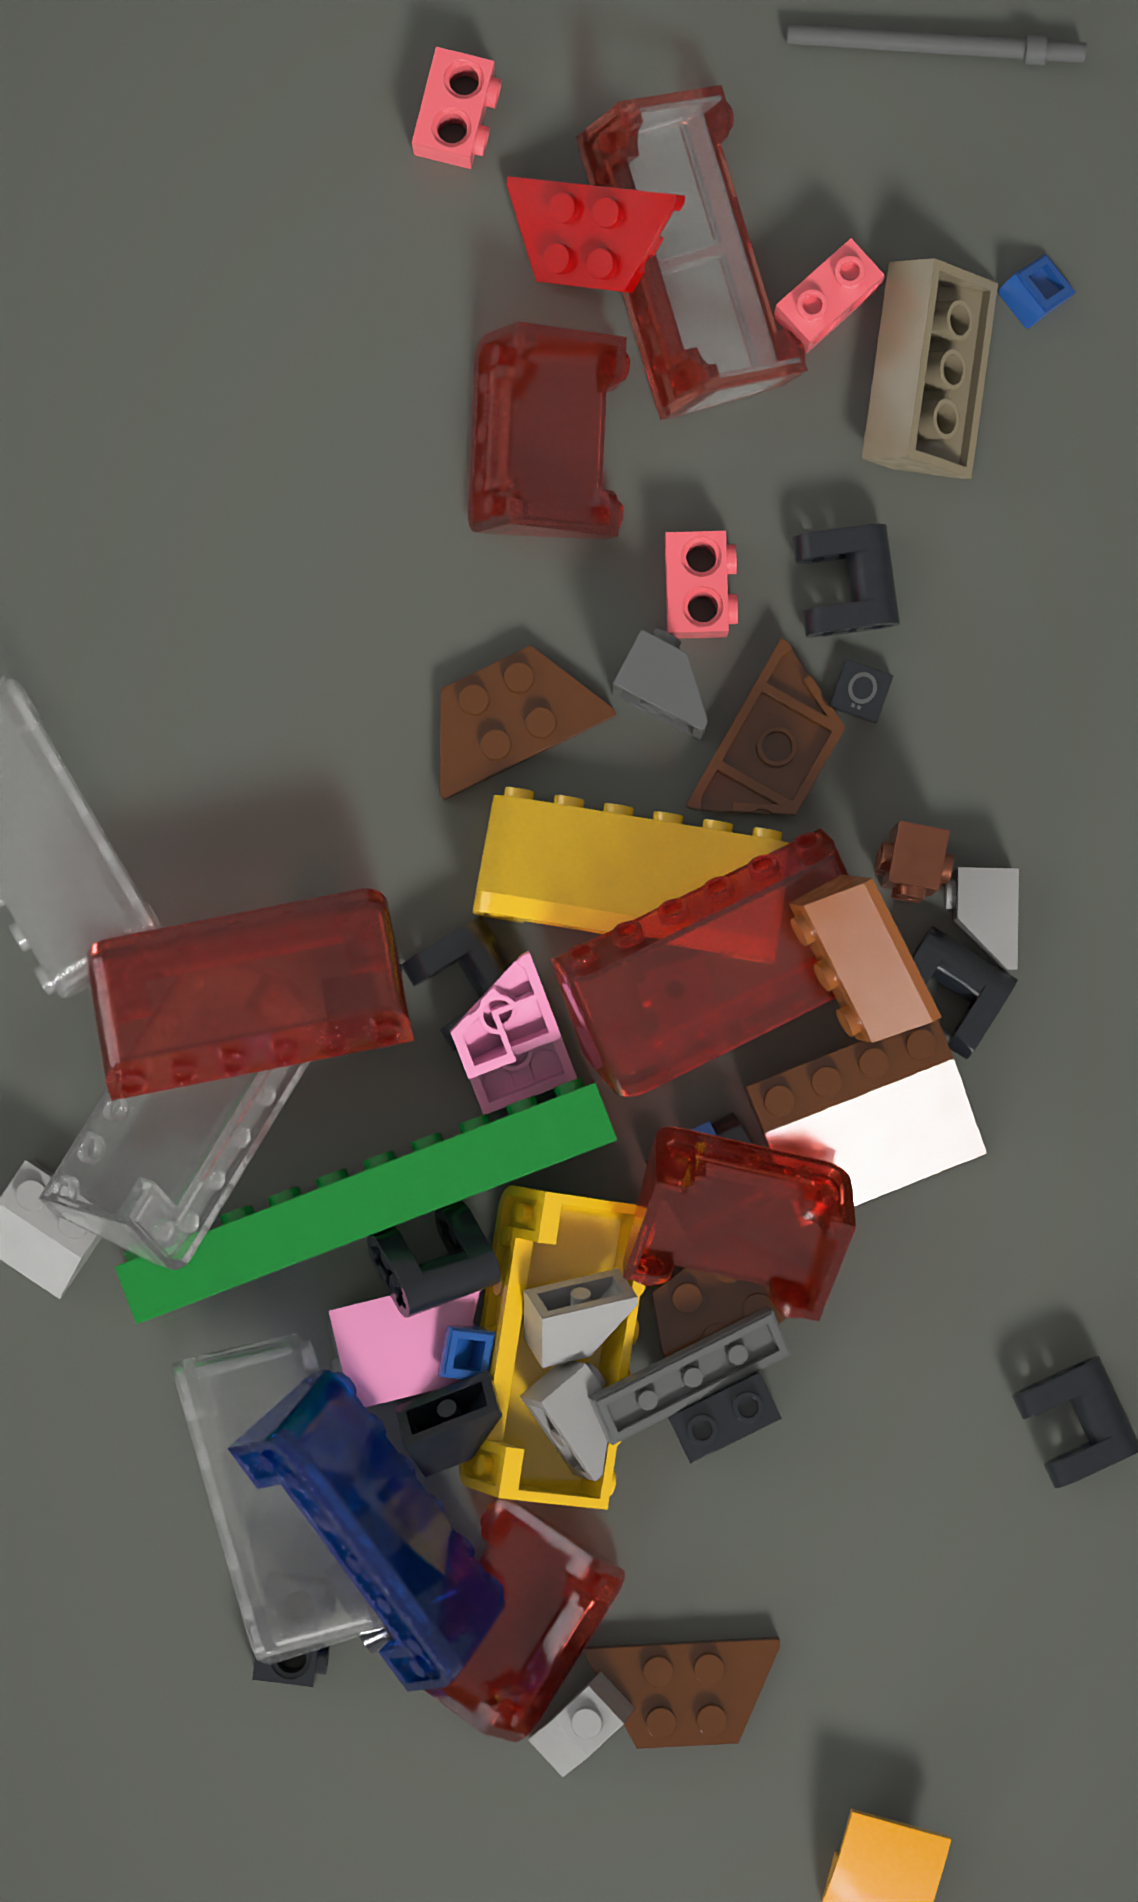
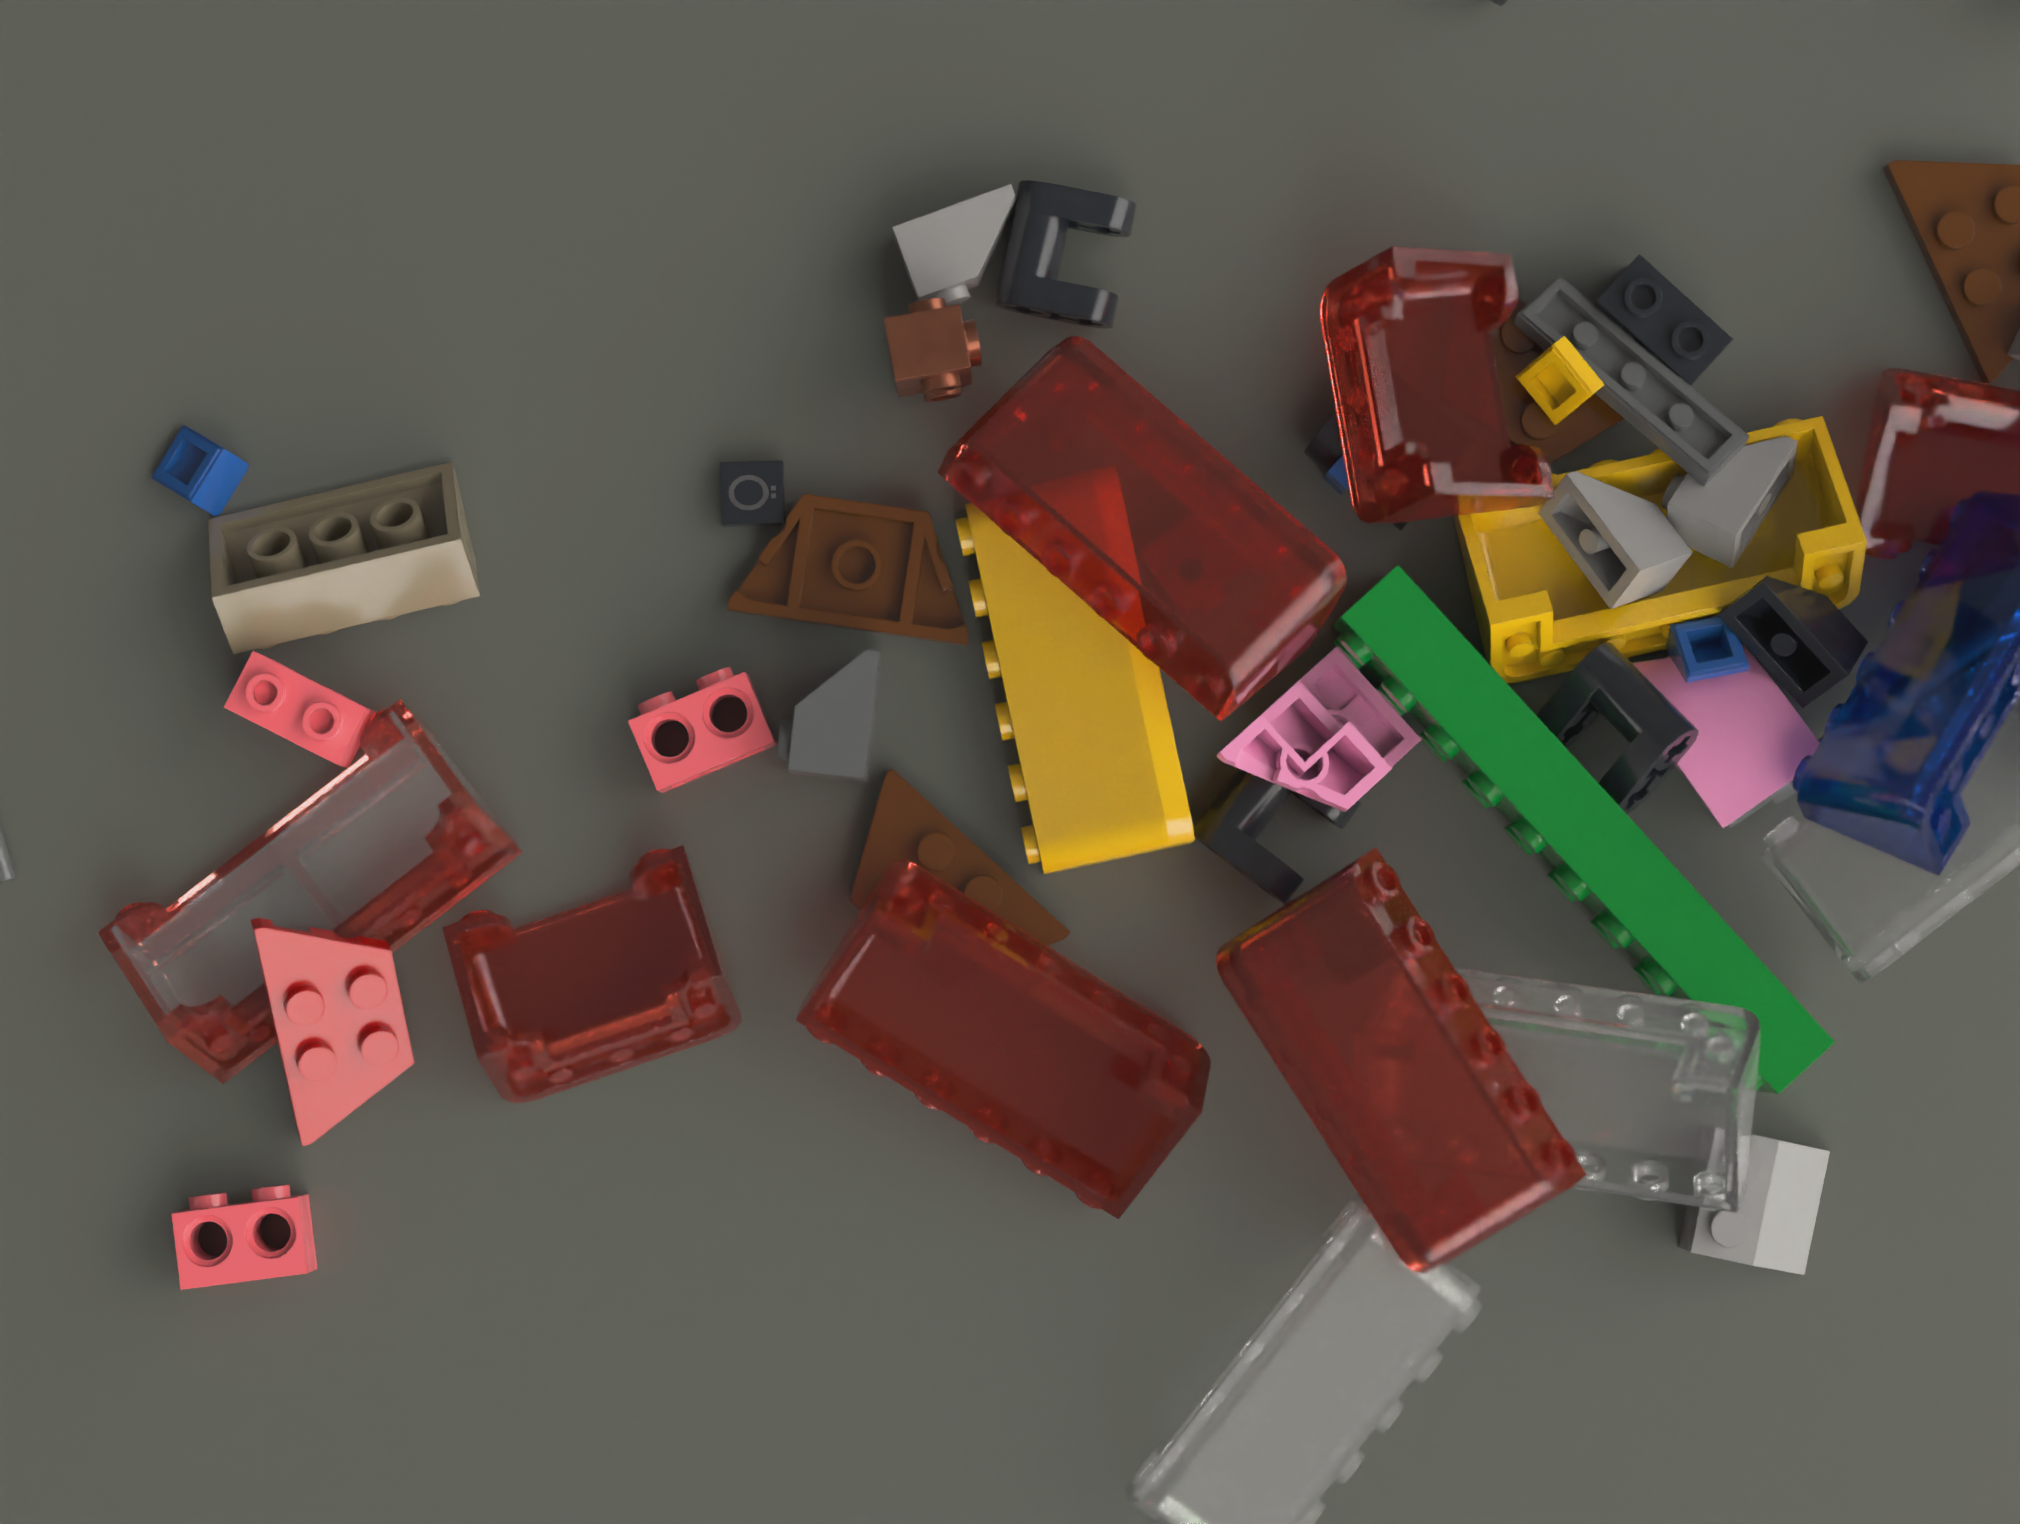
camera: 115 degrees left, 0 degrees up
(382, 720) = (1008, 1038): none -> clear red windscreen
(710, 1321) = (1560, 380): none -> yellow tile
(862, 959) = (1078, 356): slope -> none
(869, 577) = (615, 534): black connector -> none
(875, 1110) = (1234, 291): slope -> none

